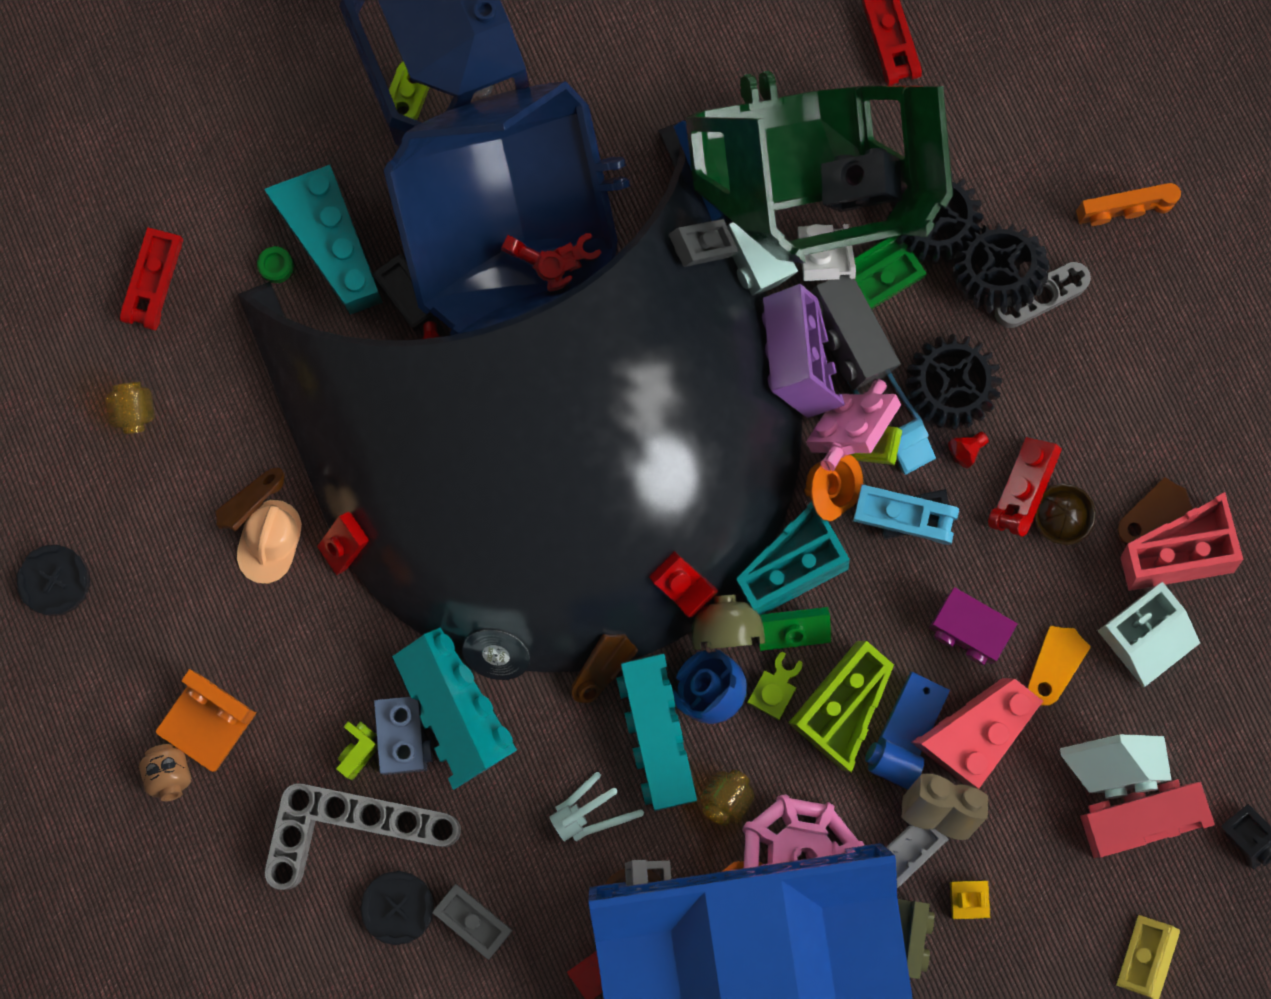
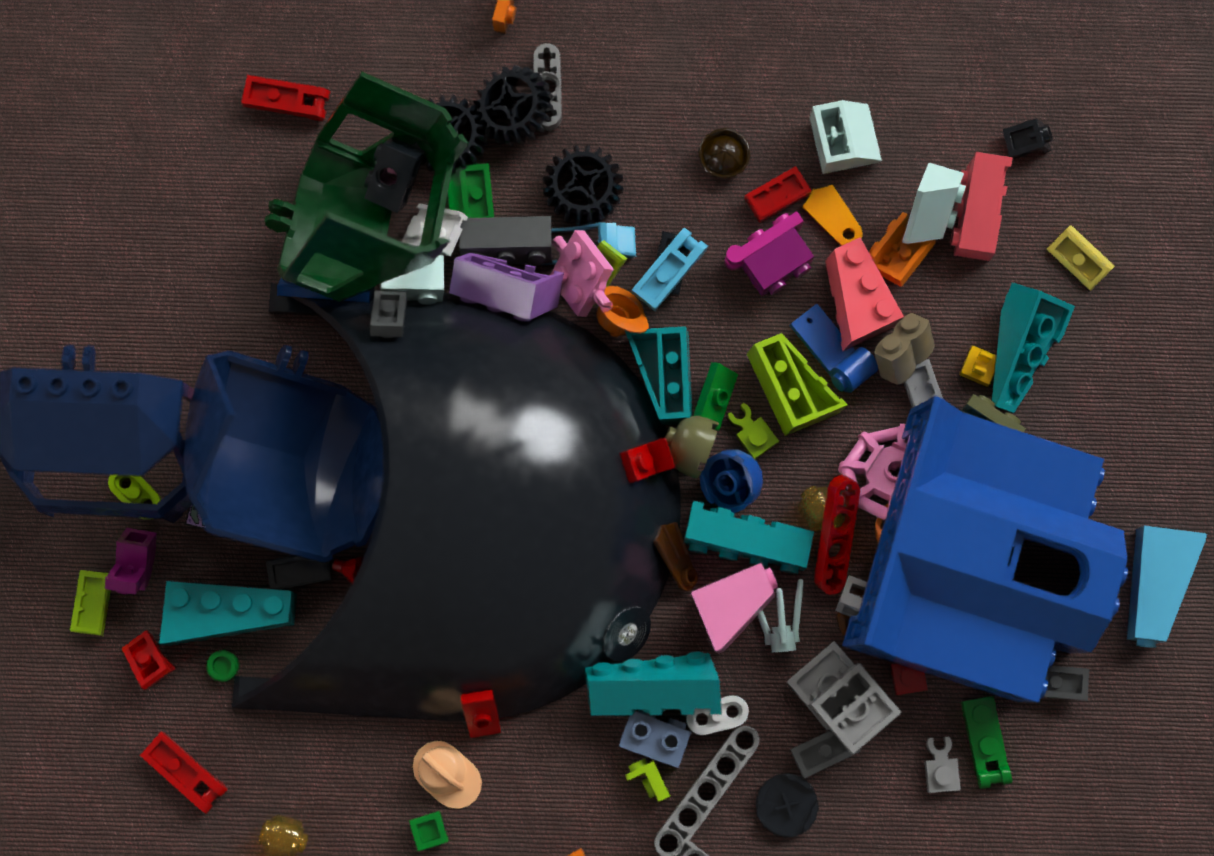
camera: 65 degrees left, 0 degrees up
(202, 549) = (429, 831): none -> green plate
(244, 187) = (147, 660): none -> red slope
(248, 500) = (406, 774): reddish brown piece -> none
(277, 105) = (90, 604): none -> lime plate
(337, 125) = (133, 562): none -> magenta brick
(453, 798) = (719, 722): none -> white plate
(534, 913) = (843, 697): none -> light grey bracket
(552, 264) = (338, 442): red piece -> none
(577, 750) = (734, 603): none -> bright pink slope
(707, 831) = (841, 534): none -> red beam
(966, 449) = (639, 201): red rock -> none
(987, 594) = (736, 254): none -> dark pink plate
(1025, 487) = (689, 171): red plate -> none
(1029, 934) = (1026, 332): none -> teal wedge
(1039, 753) = (897, 259): none -> orange bracket
(1049, 592) = (777, 194): none -> red plate
(1160, 506) = (754, 87): reddish brown piece -> none
(1187, 549) = (794, 78): coral wedge -> none

